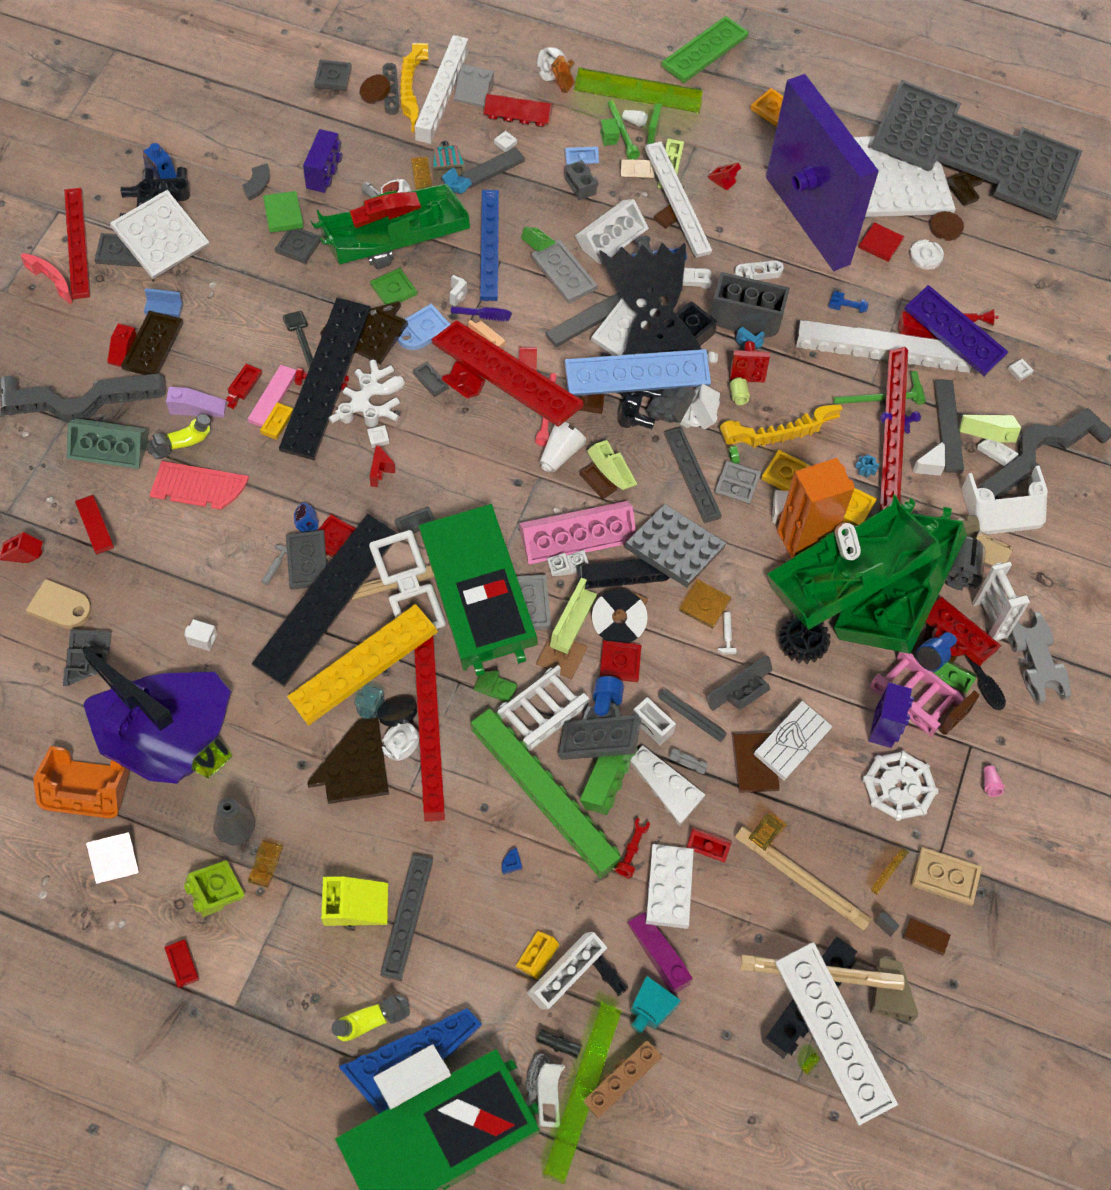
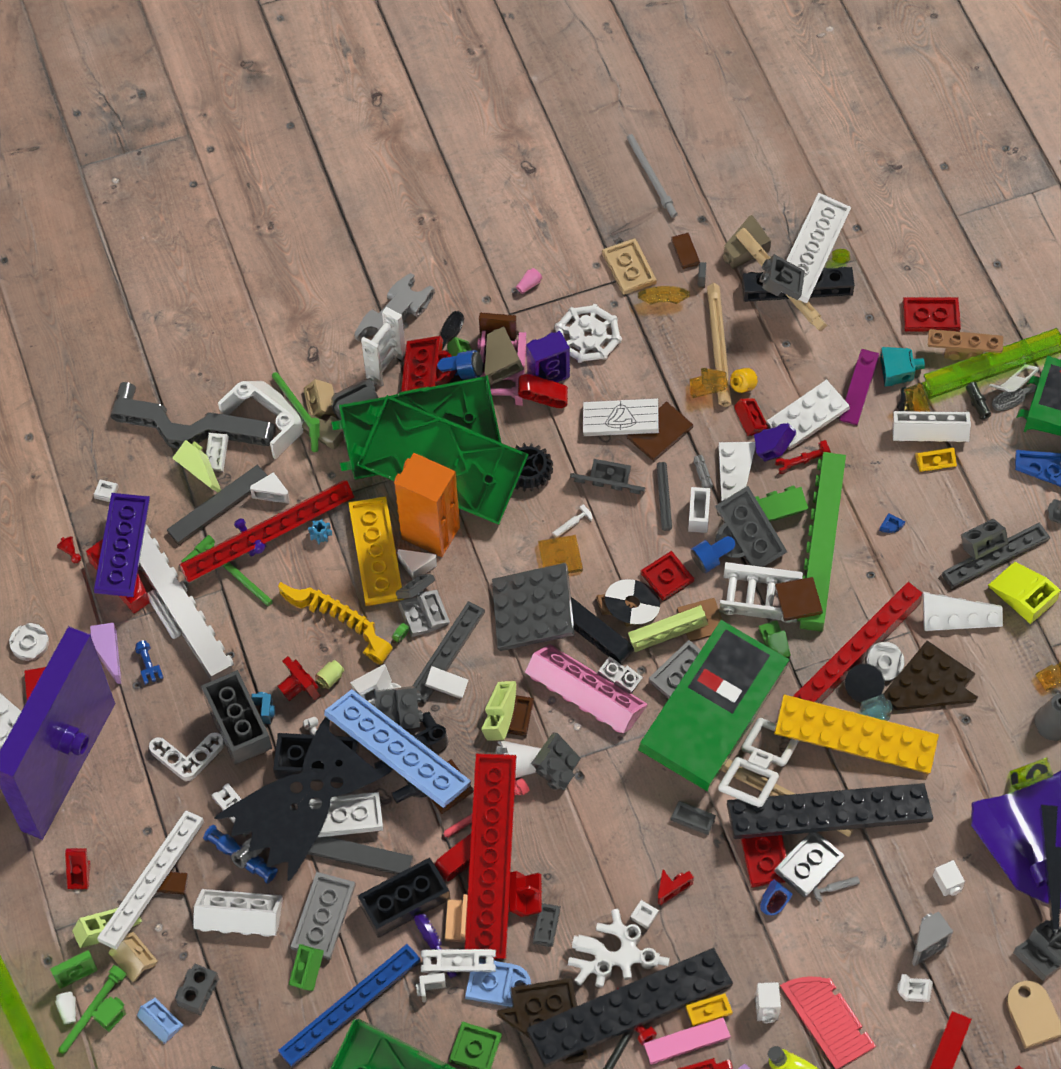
camera: 125 degrees left, 0 degrees up
(155, 546) = (915, 989): none -> white bracket
(172, 579) = (932, 937): none -> light grey slope
(241, 448) = (767, 1002): none -> white brick
(383, 833) = (957, 613): none -> white wing
(422, 911) = (984, 539): none -> dark grey brick
(455, 310) = (458, 960): none -> white plate
(507, 718) = (798, 599): none -> reddish brown tile
(529, 313) = (404, 897): none -> black brick
(536, 463) = (556, 762): none -> dark grey plate
(599, 983) = (916, 398): none -> clear yellow slope
(665, 829) = (774, 441): none -> dark purple slope
(666, 452) = (446, 682): none -> white tile
(682, 1091) = (931, 313): none -> red tile
(747, 860) = (743, 380): none -> yellow head
(762, 485) = (415, 586): none -> dark grey plate
(811, 947) = (782, 277): none -> dark grey plate
(865, 697) = (542, 391): none -> red beam
(880, 286) = (106, 645): none -> lavender slope
(927, 687) = (500, 357): none -> dark tan slope
(965, 511) = (313, 423): none -> bright green bar
(996, 966) = (666, 201): none -> light grey bar

